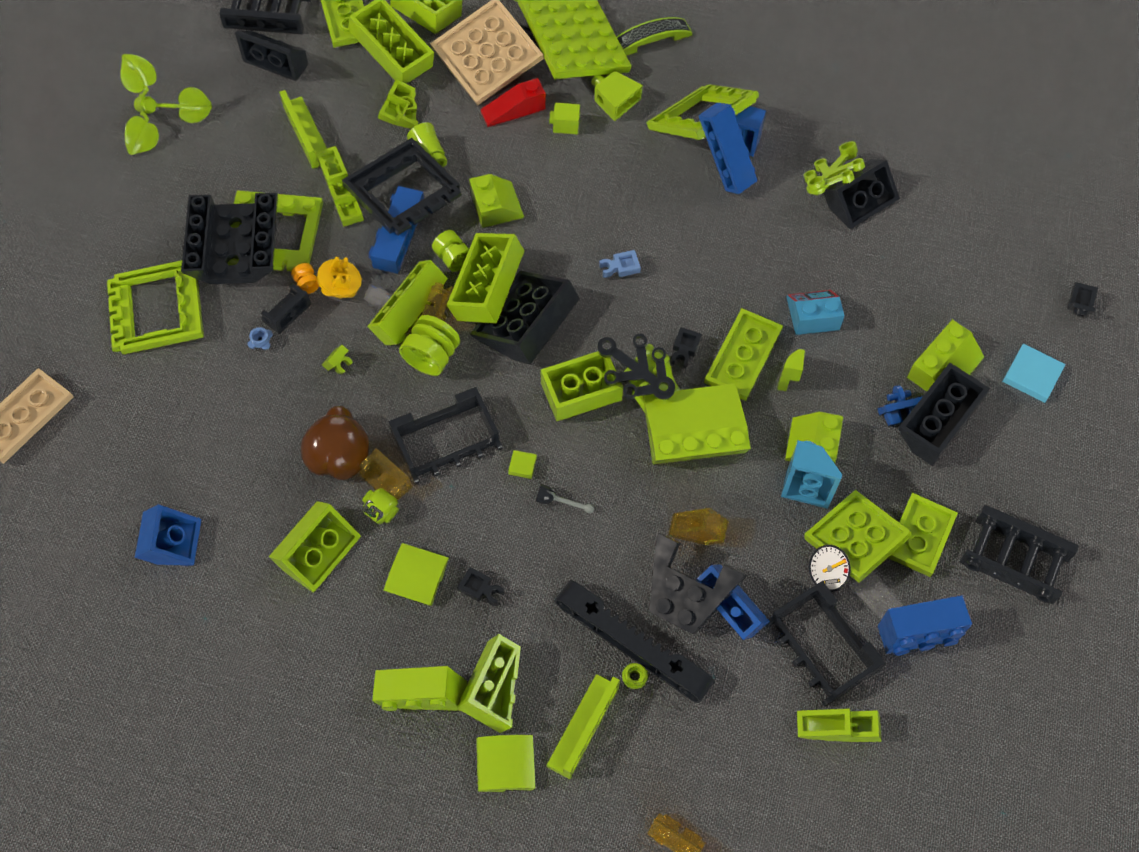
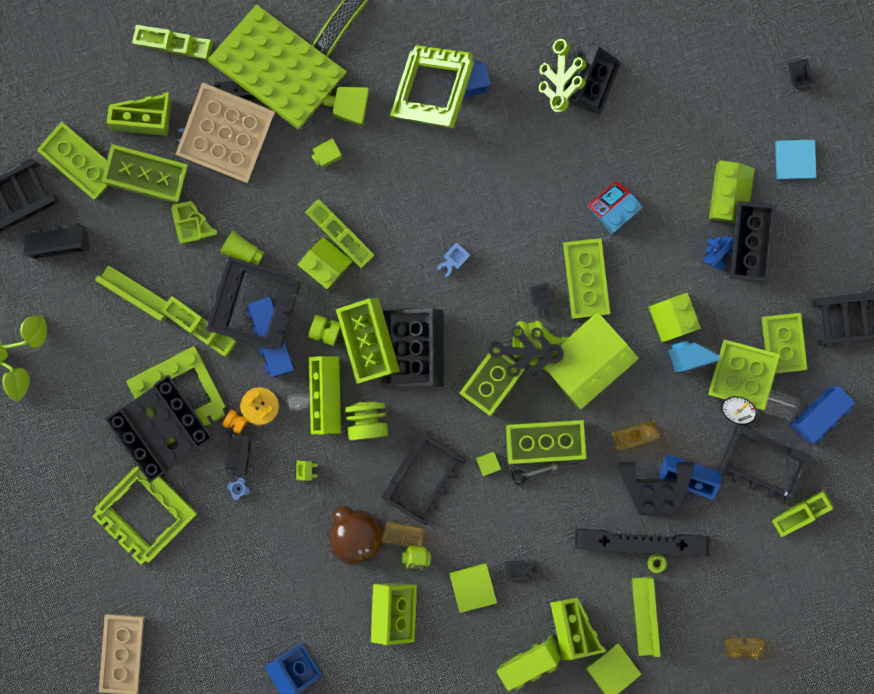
camera: 30 degrees left, 25 degrees up
(440, 298) = (352, 392): clear yellow hinge -> none
(515, 103) = (277, 165): red slope -> none
(528, 185) = (339, 233): none -> lime slope
(597, 472) = (545, 441): none -> lime brick
(728, 147) = (476, 116): blue brick -> none
(792, 369) = (628, 270): lime slope -> none

